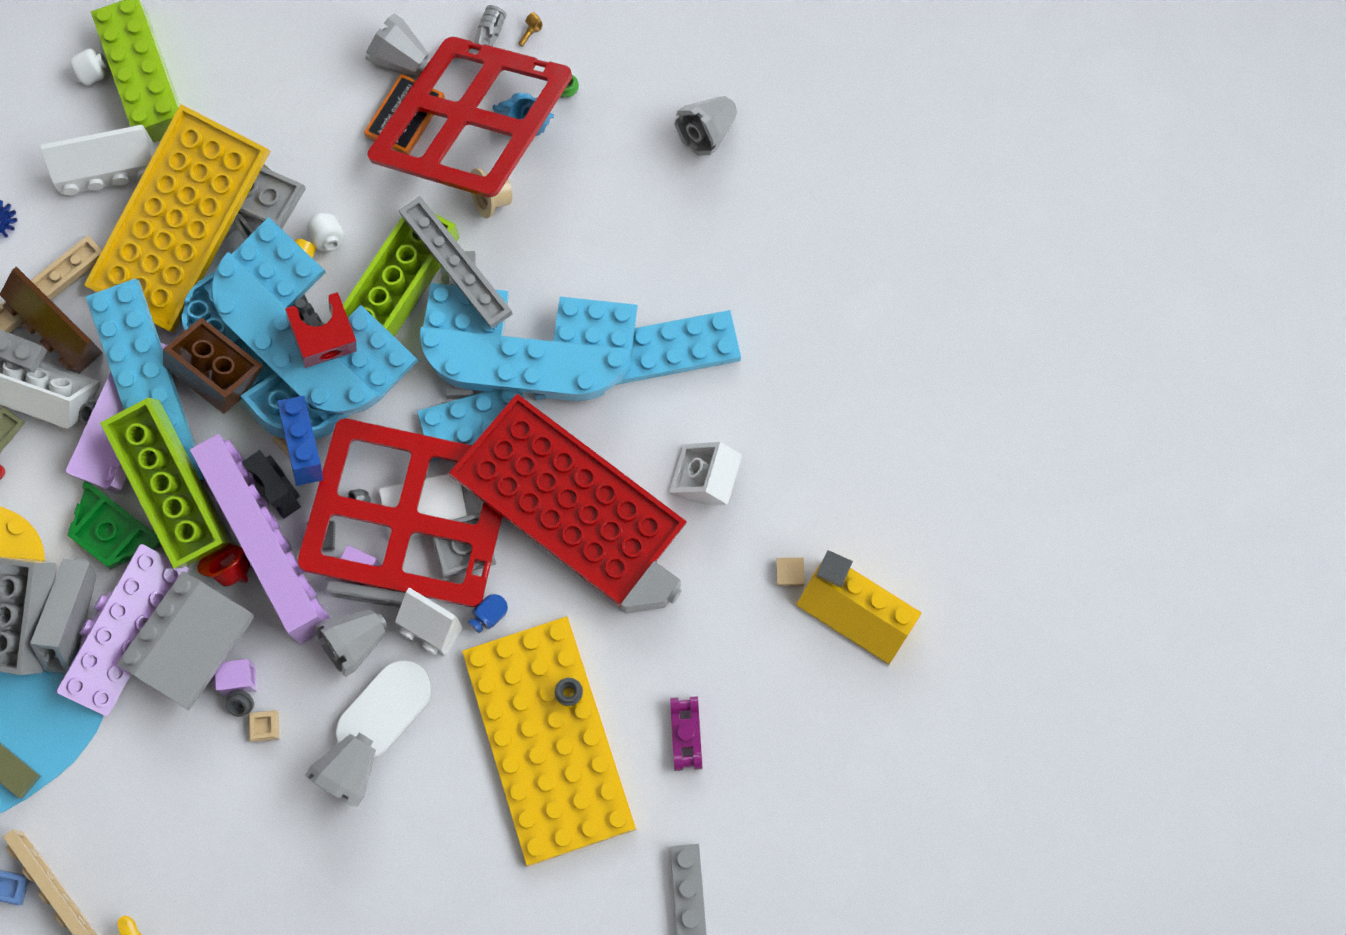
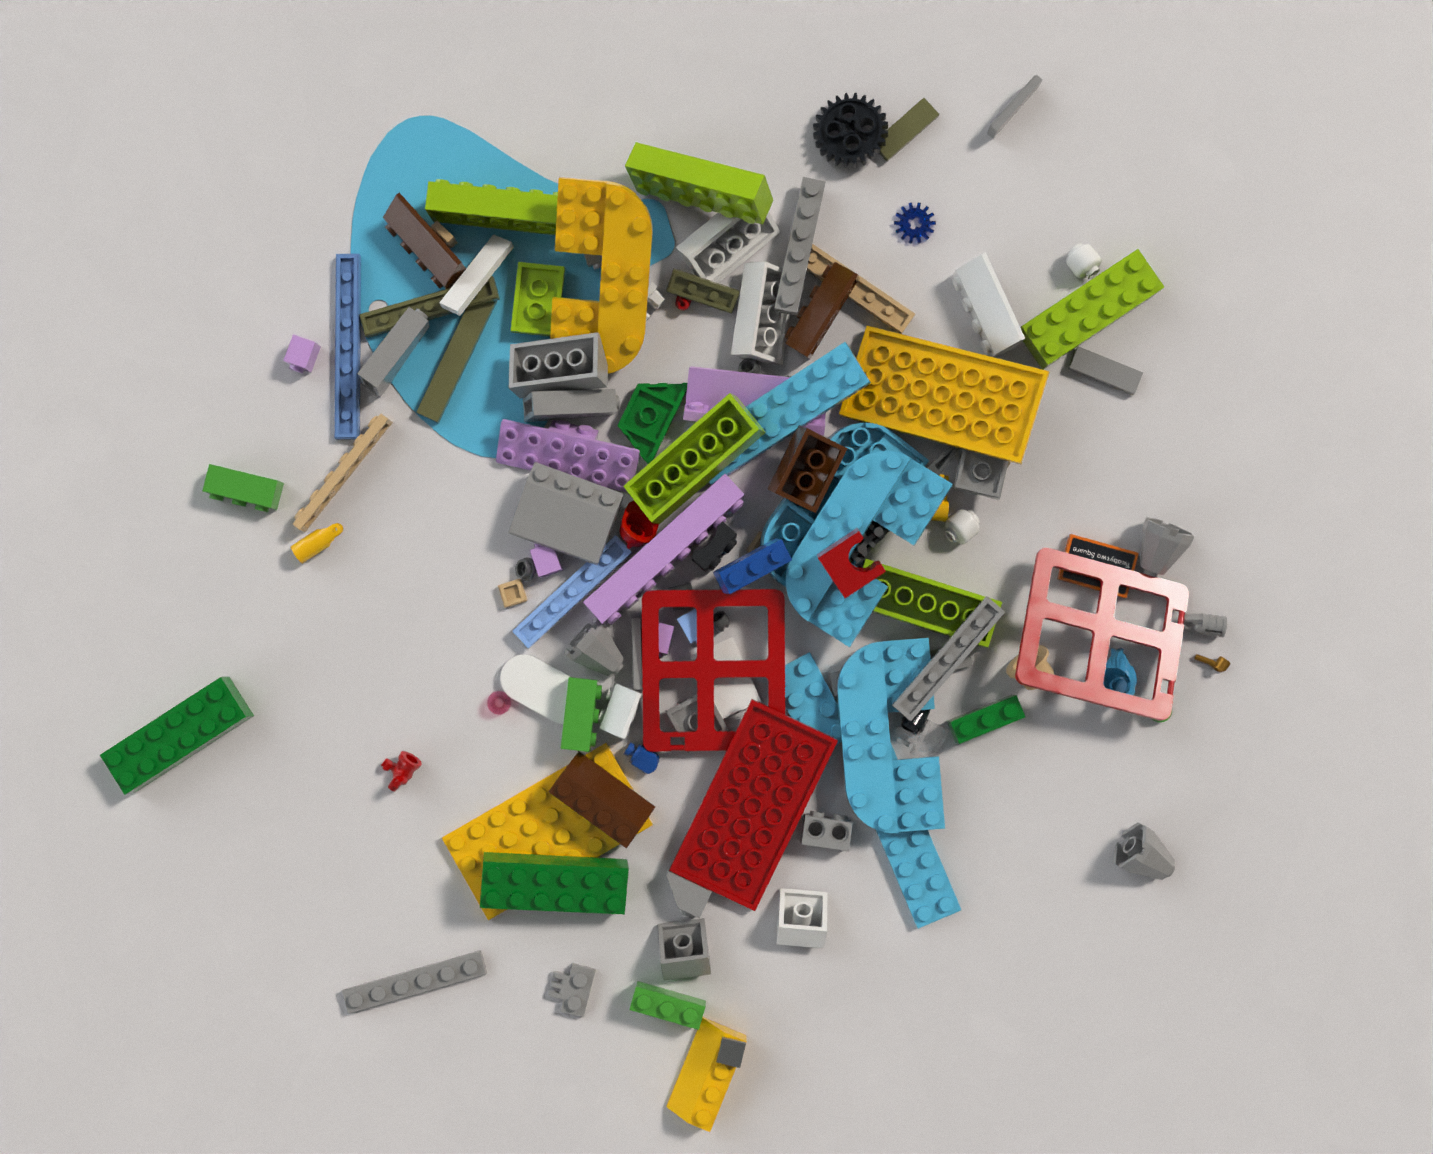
camera: 80 degrees right, 15 degrees up
(207, 70) = (1105, 370): none -> light grey tile
(282, 657) = (571, 593): none -> light blue plate
(345, 768) = (485, 674): light grey cone -> none
(354, 531) = (689, 625): none -> light blue brick
(377, 764) = (492, 706): none -> clear pink plate
(419, 668) = (580, 714): none -> bright green brick
(437, 899) = (402, 770): none -> red piece
(521, 320) = (917, 723): none -> black cone
(523, 663) = (602, 799): none -> reddish brown slope
(533, 247) = (985, 719): none -> green brick
(541, 309) = (926, 742): none -> clear brick
(568, 683) = (585, 850): dark grey plate -> none
(605, 737) = (554, 883): none -> green brick
(620, 430) = (824, 837): none -> light grey brick
(686, 733) = (573, 945): magenta plate -> none
(714, 607) = (683, 949): none -> light grey slope
(736, 743) = (573, 988): none -> light grey hinge
(773, 636) = (668, 1005): none -> bright green brick
(790, 571) = (729, 1007): tan tile -> none

